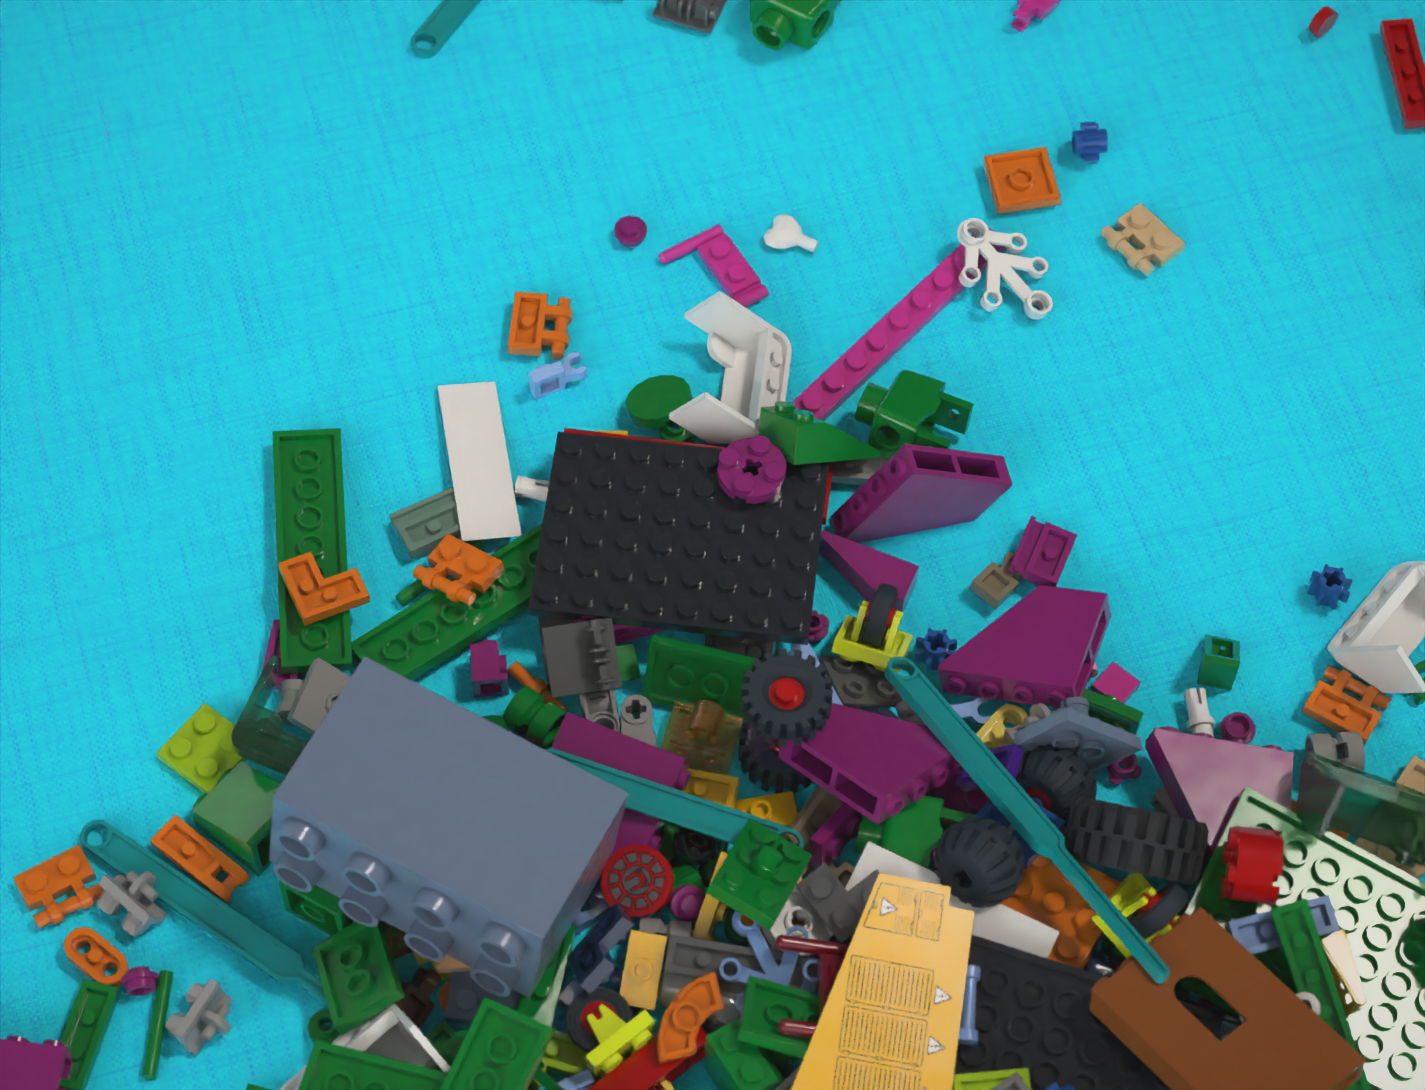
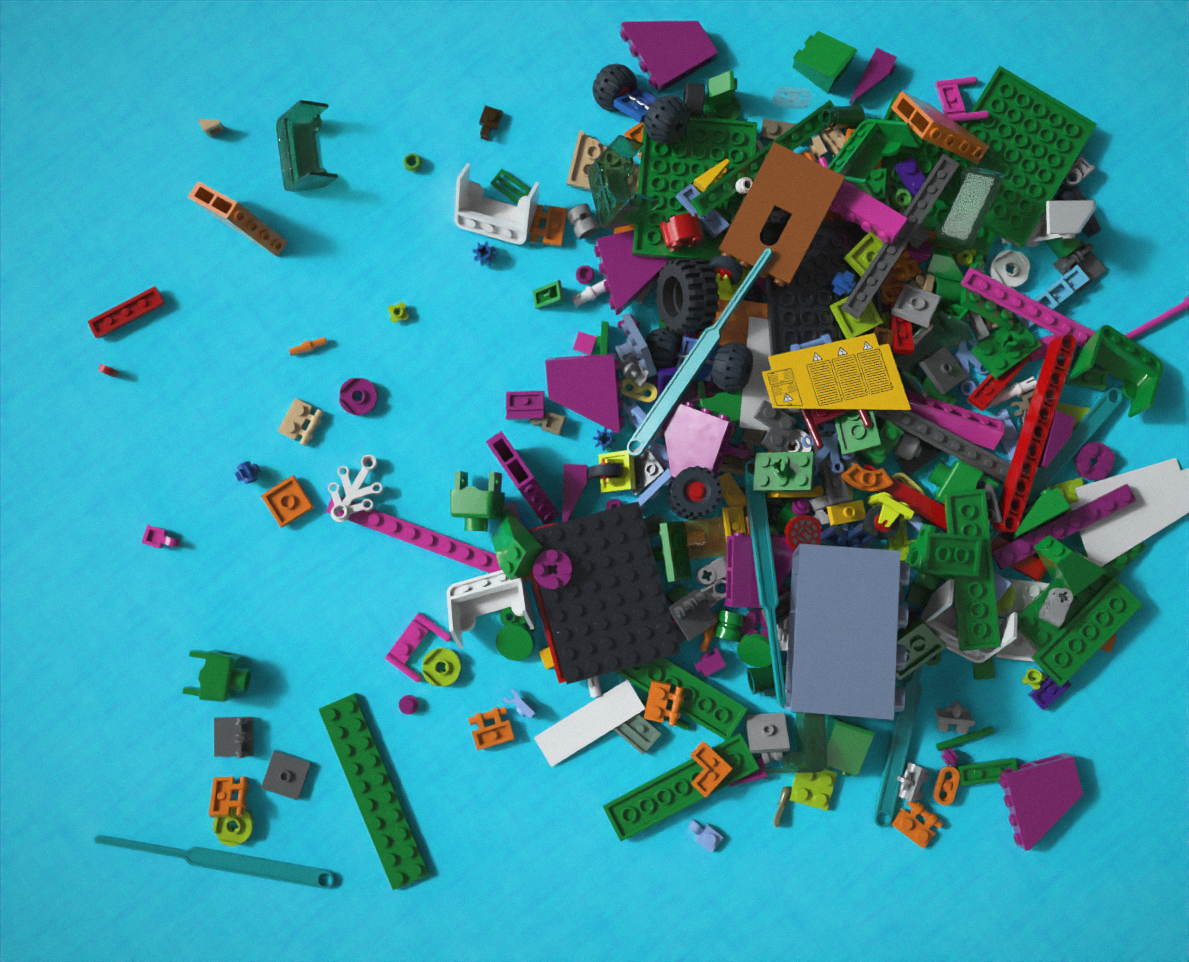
camera: 110 degrees left, 25 degrees up
(199, 858) = (874, 762): orange plate -> none
(202, 690) = (782, 804): none -> olive piece
(213, 563) = (706, 836): none -> light blue plate
(522, 144) = (374, 791): none -> green plate
(603, 45) = (286, 775): none -> dark grey plate
(667, 308) = (452, 667): none -> lime plate
(788, 233) = (375, 617): white rock -> none
(1153, 344) = (358, 407): none -> magenta plate
(1263, 289) = (308, 346): none -> orange bar
(1272, 438) = (403, 315): none -> lime plate

